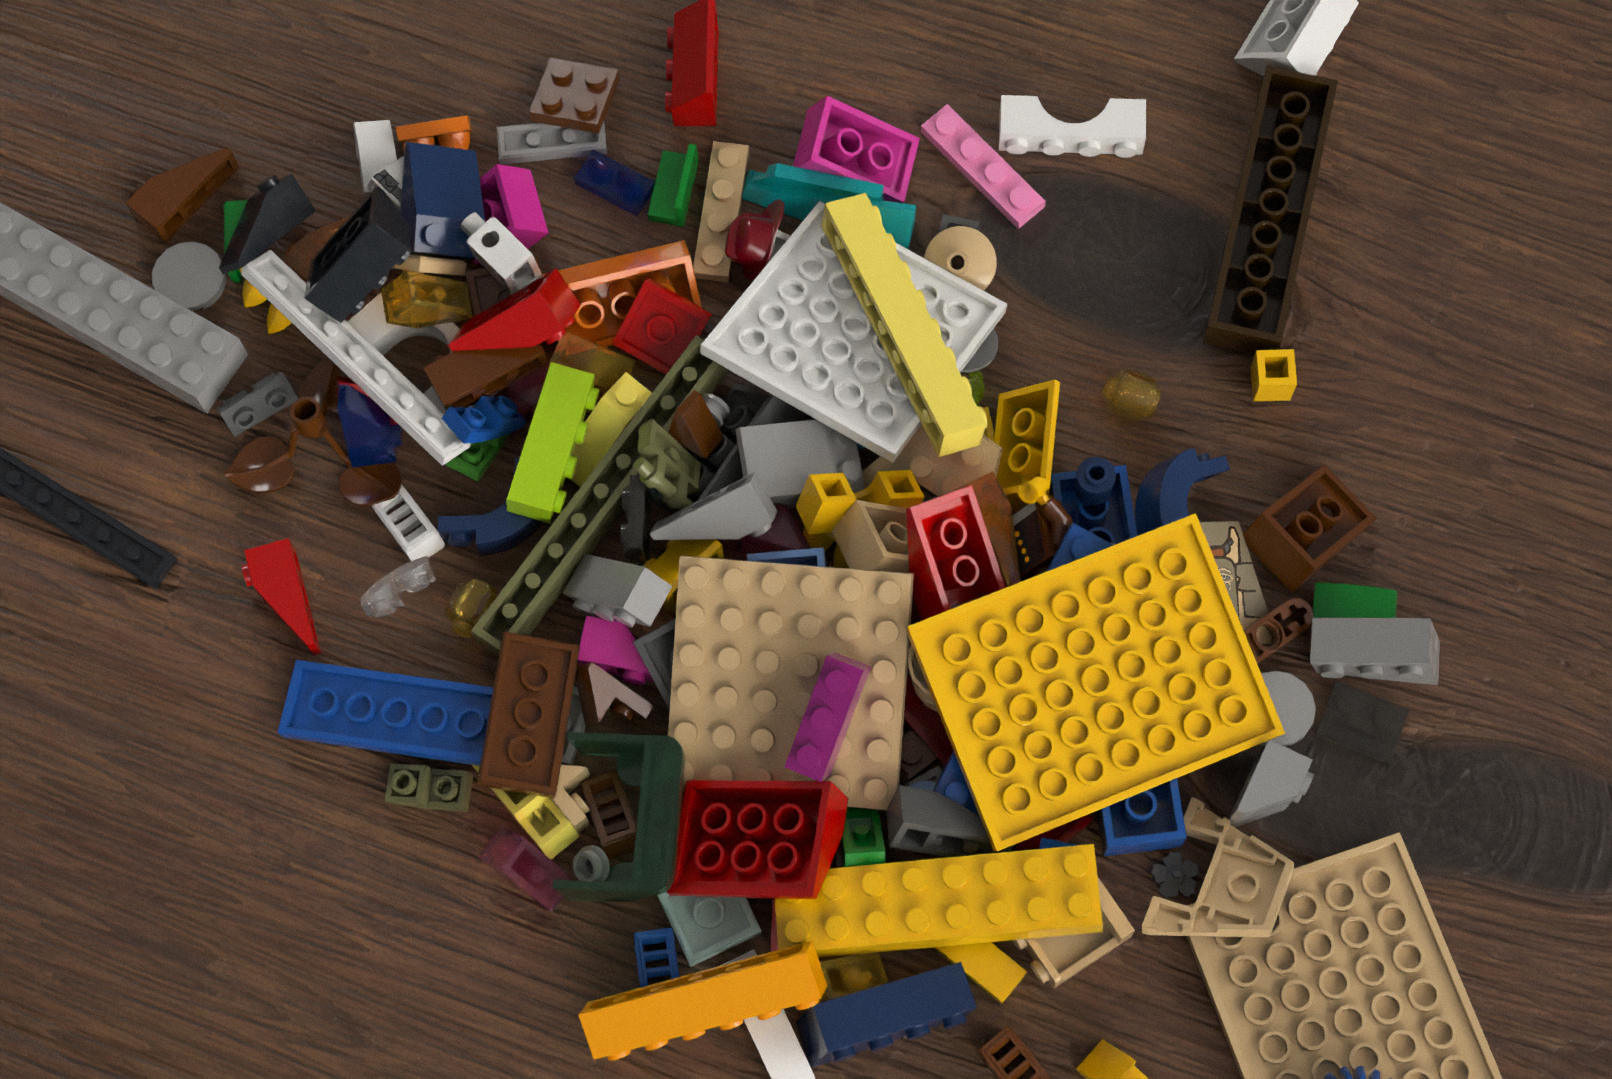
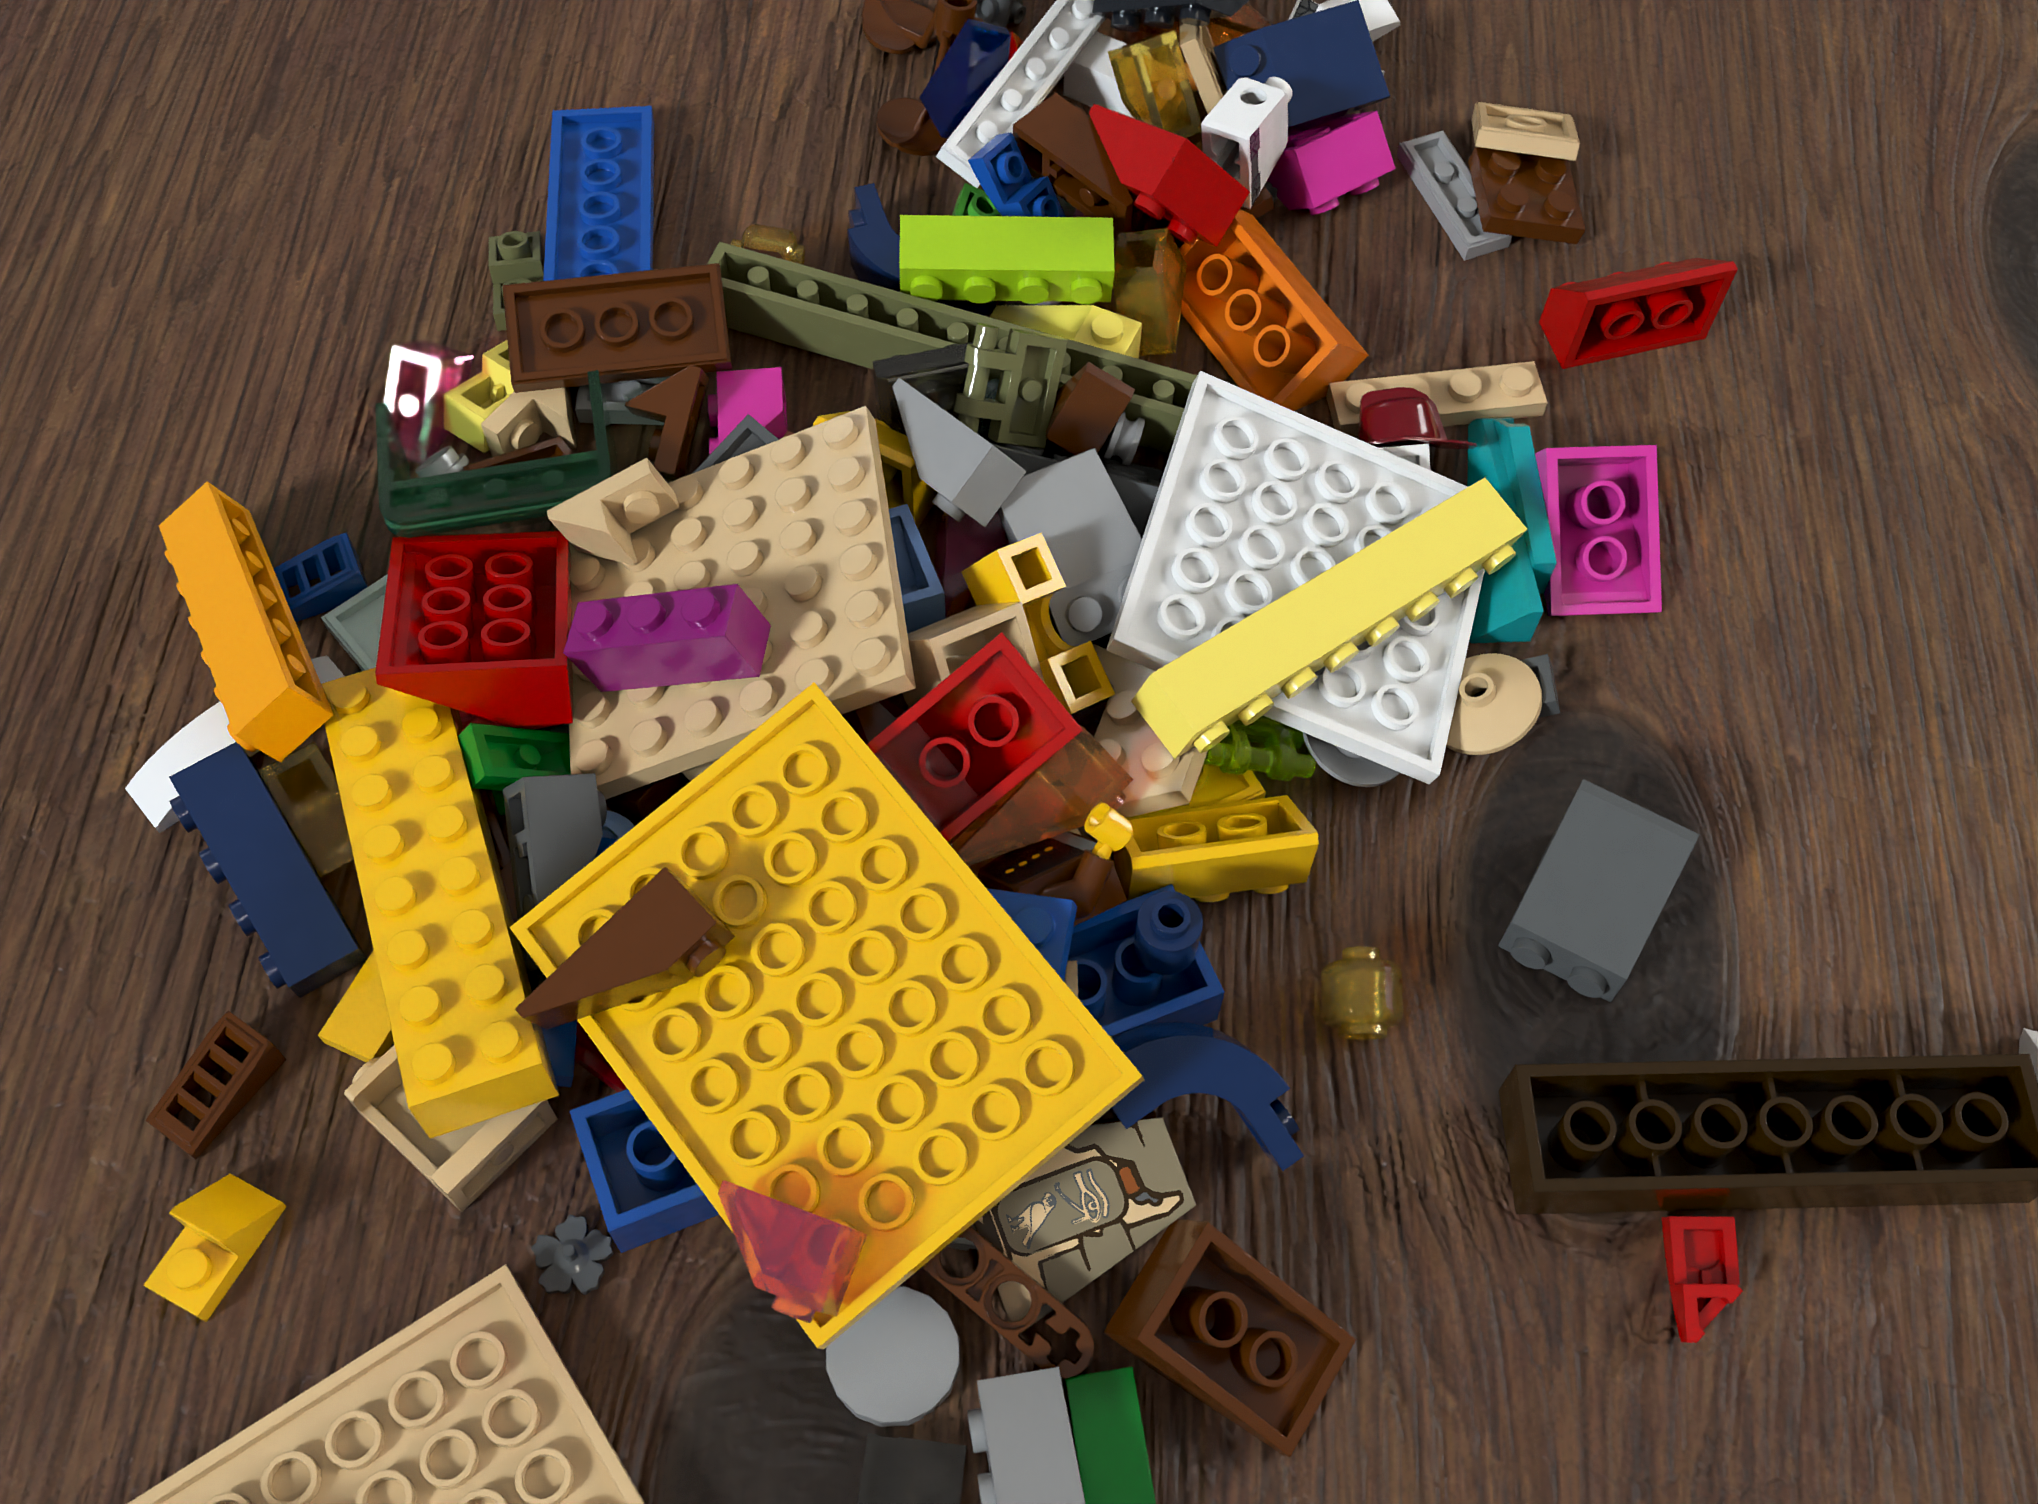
camera: 70 degrees right, 10 degrees down
(279, 582) = (735, 76): red slope -> none
(386, 593) = (774, 176): clear slope -> none
(419, 543) = (859, 168): white slope -> none
(450, 132) = (1413, 81): orange tile -> none
(522, 76) = (1525, 131): none -> tan tile
(614, 182) = (1424, 272): clear blue tile -> none
(616, 591) = (815, 380): light grey brick -> none
(660, 326) = (1233, 343): red plate -> none
(674, 187) = (1448, 337): green panel -> none
(698, 751) = (608, 512): none -> tan slope
(983, 166) = (1656, 704): bright pink plate -> none
(1028, 127) = (1804, 869): white arch -> none
(1048, 768) = (643, 949): none -> reddish brown slope
(1107, 247) = (1598, 891): none -> dark grey slope
(1239, 725) = (792, 1252): none -> clear pink slope
(1239, 890) = (545, 1348): tan wing -> none
(1272, 784) = (741, 1356): light grey slope -> none
(1273, 375) = (1477, 1204): yellow brick -> none
(1328, 277) = (1700, 1270): none -> red slope

